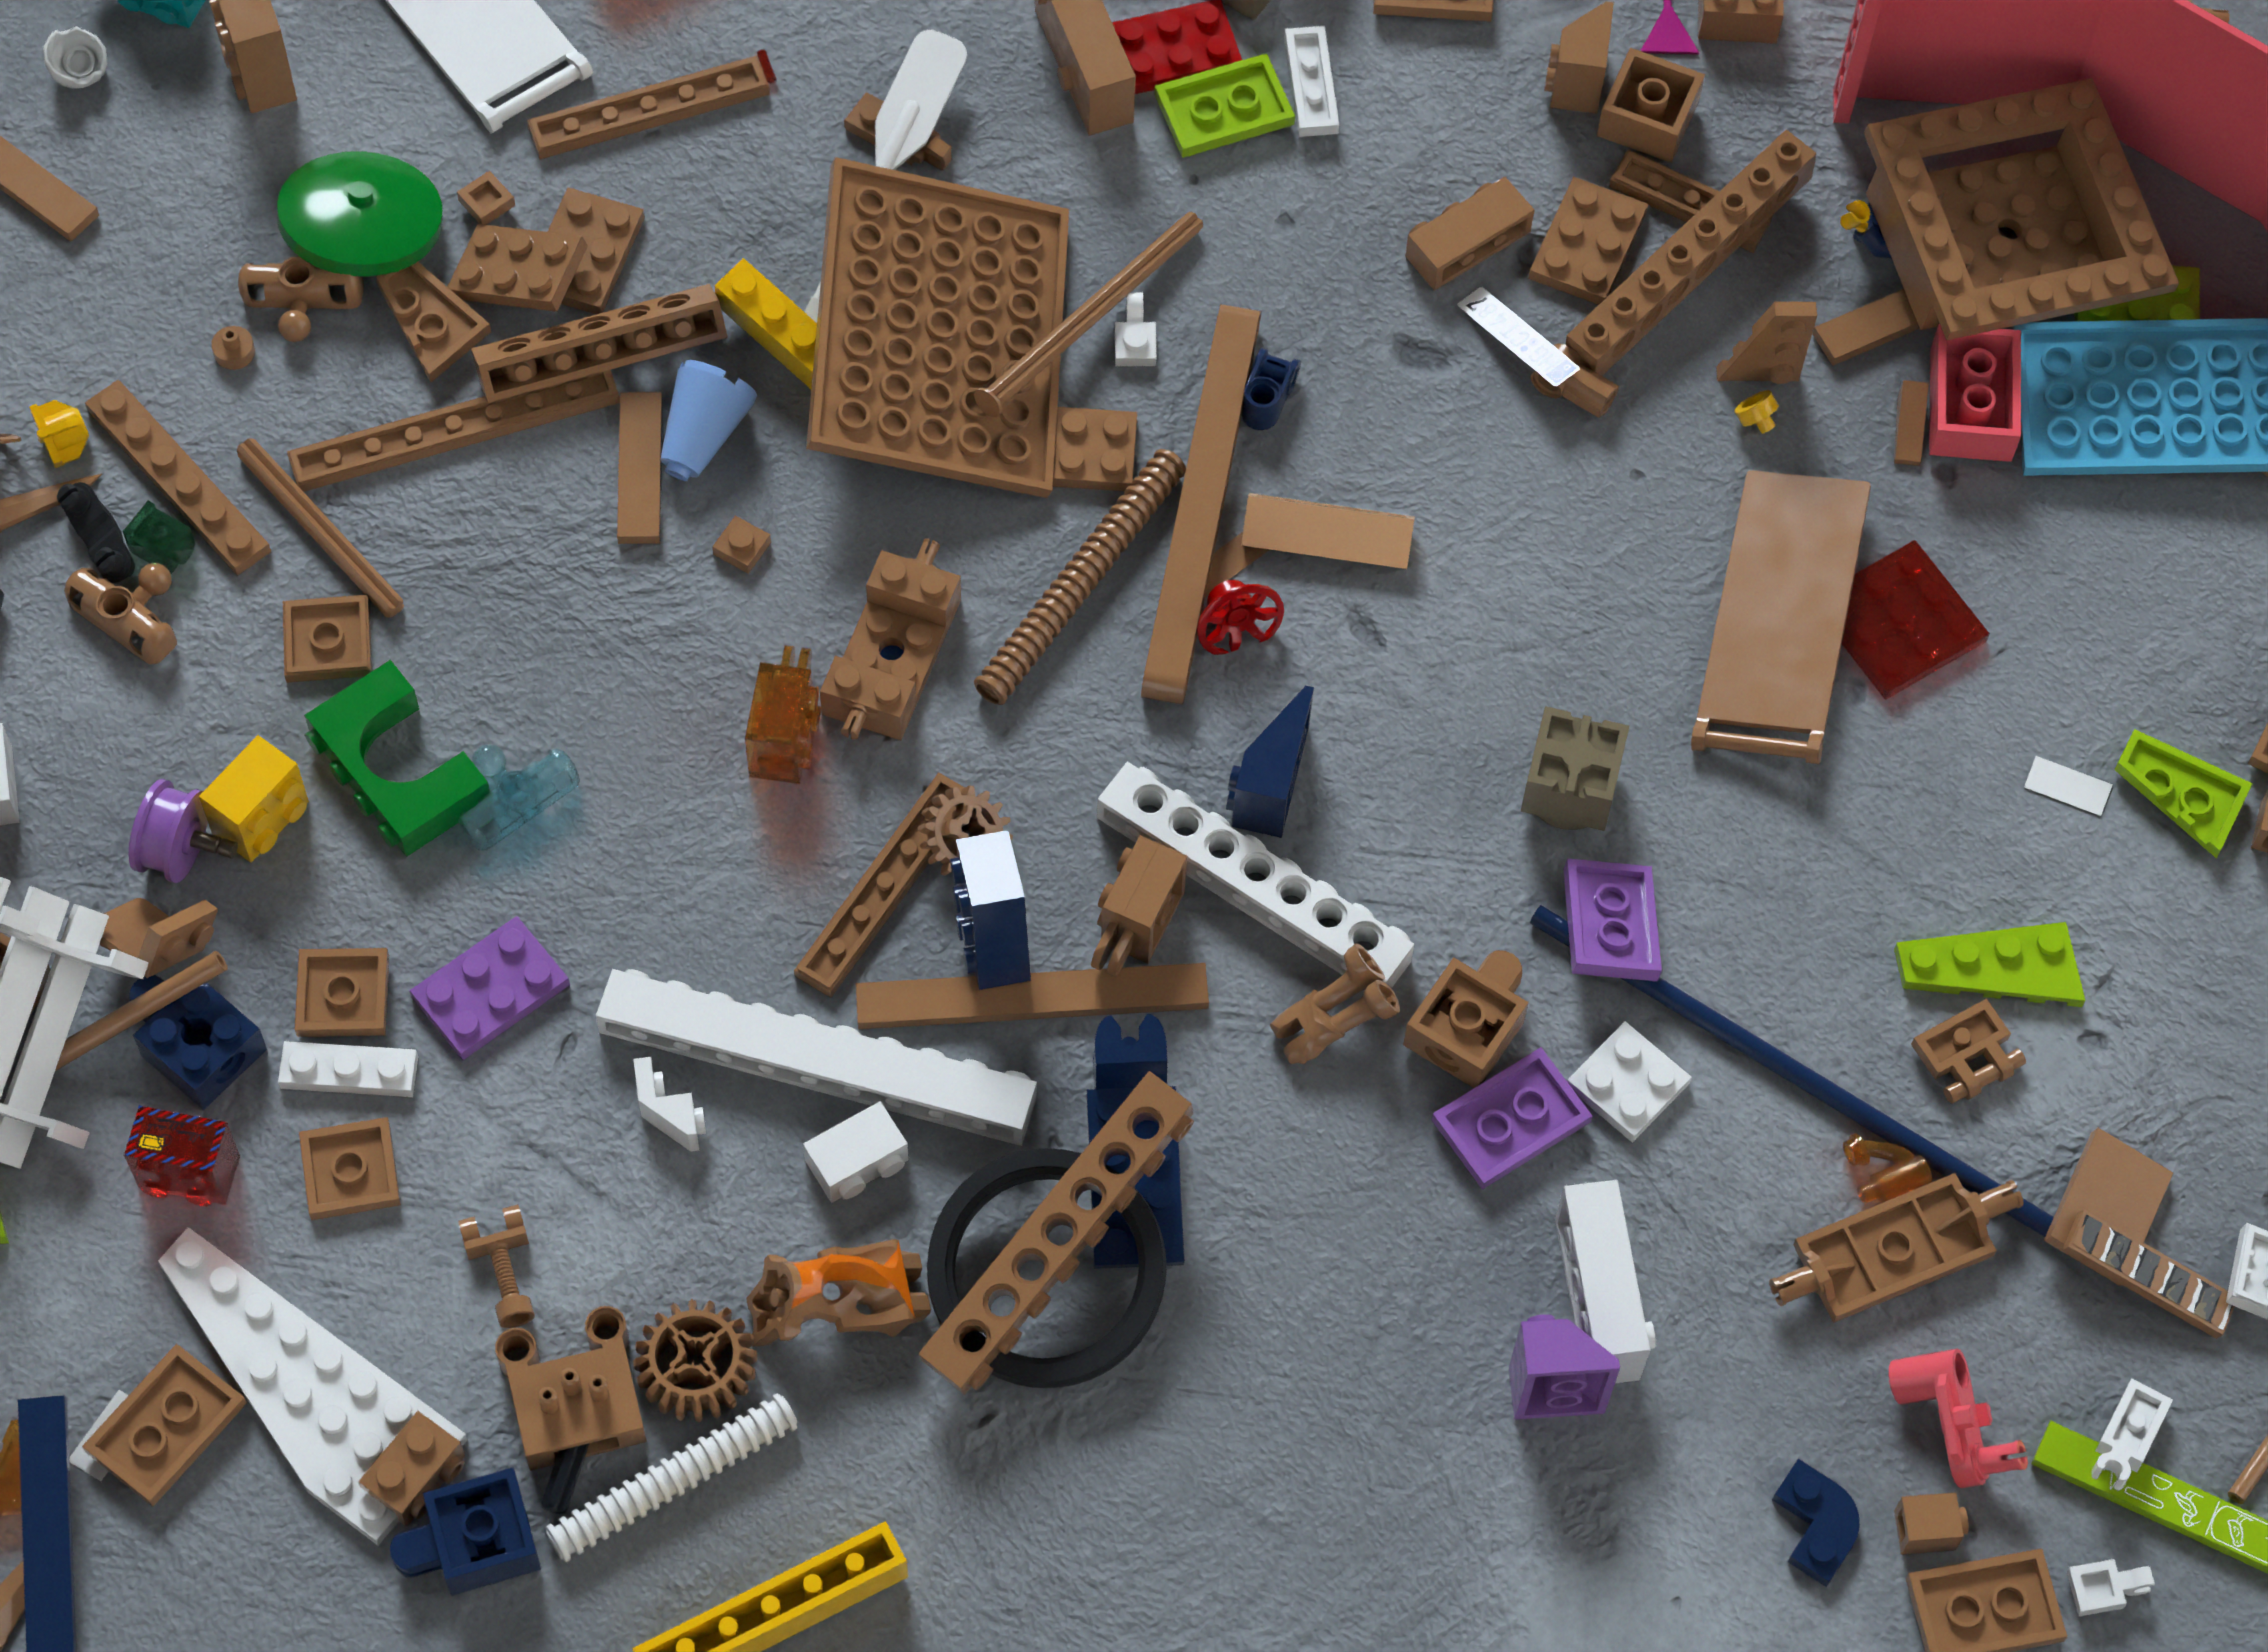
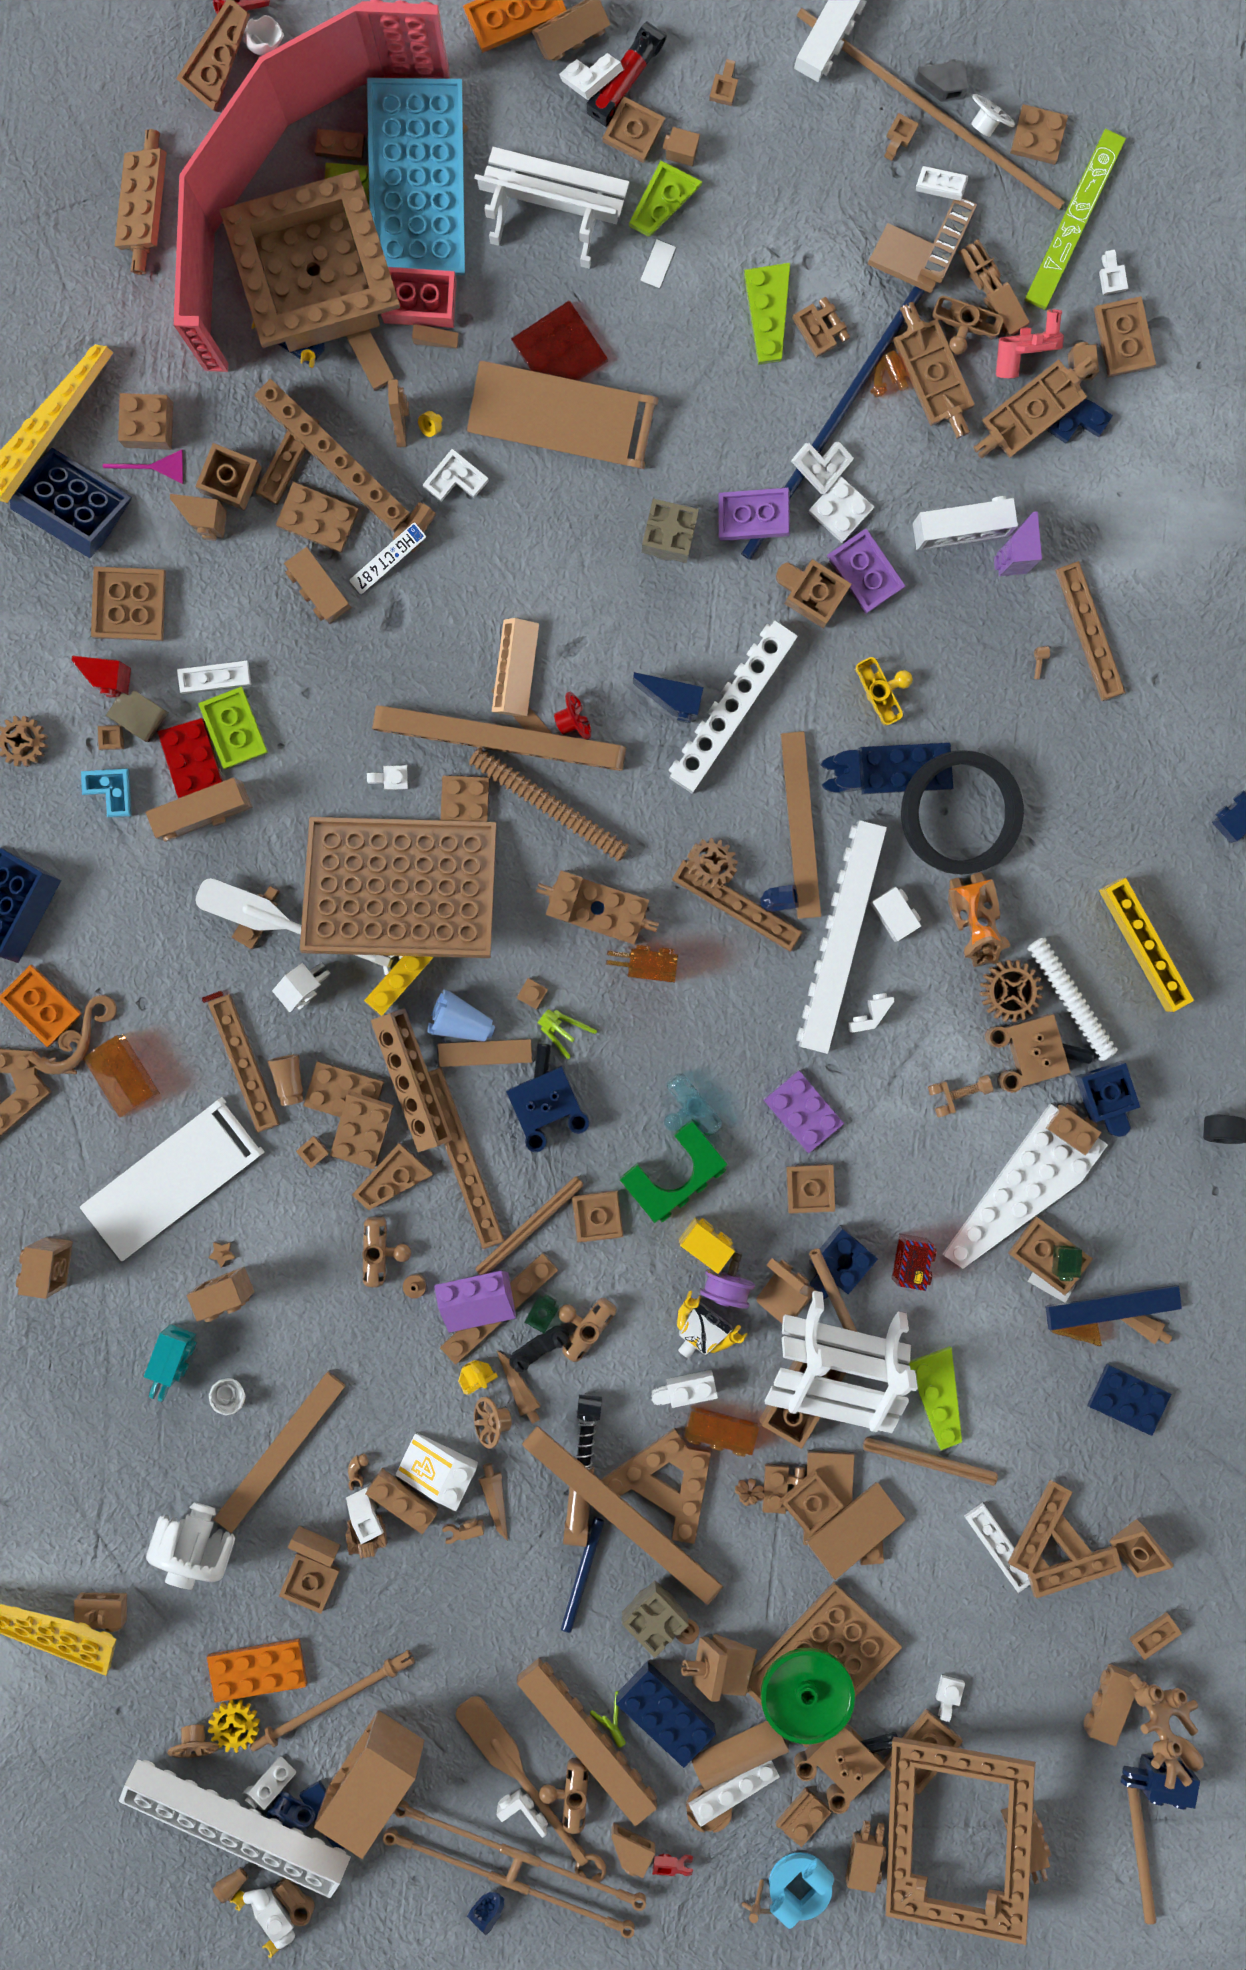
camera: 90 degrees left, 25 degrees up
(99, 797) = (704, 1329): none -> torso
(149, 1438) = (1067, 1262): none -> clear green brick
(196, 427) = (475, 1301): none -> medium lavender slope
(323, 66) = (221, 1253): none -> medium nougat piece
(348, 1069) = (851, 1181): white plate -> none
(349, 1168) = (907, 1176): medium nougat tile -> none
(359, 213) = (328, 1222): green dish -> none
(545, 553) = (545, 1099): none -> dark blue piece
(616, 162) = (287, 1078): none -> medium nougat plant
(685, 569) = (551, 1021): none -> lime plant
(775, 179) = (299, 986): none -> white brick
(895, 952) = (780, 898): none -> dark blue rock
(991, 910) = (770, 844): dark blue brick -> none
(1014, 379) = (383, 802): medium nougat axle -> none
(1139, 903) = (757, 768): medium nougat brick -> none
(1148, 1101) = (891, 757): medium nougat brick -> none
(1262, 1145) = (870, 680): none -> yellow piece
(1271, 384) = (419, 700): dark blue piece -> none
(1312, 1010) = (820, 670): medium nougat piece -> none
(1355, 1434) = (1039, 654): none -> medium nougat hand
(1401, 1534) = (1090, 631): none -> medium nougat tile
(1673, 443) = (454, 471): none -> white plate
(1696, 1042) = (822, 470): none -> white plate
(1832, 1423) = (1035, 408): none -> medium nougat plate
(1990, 1329) = (978, 326): none -> medium nougat piece
(2051, 1368) = (1002, 299): none -> medium nougat arm
(2131, 1431) = (1034, 255): white plate -> none
(2179, 548) = (549, 194): none -> white piece
(2233, 287) = (340, 144): none -> medium nougat plate

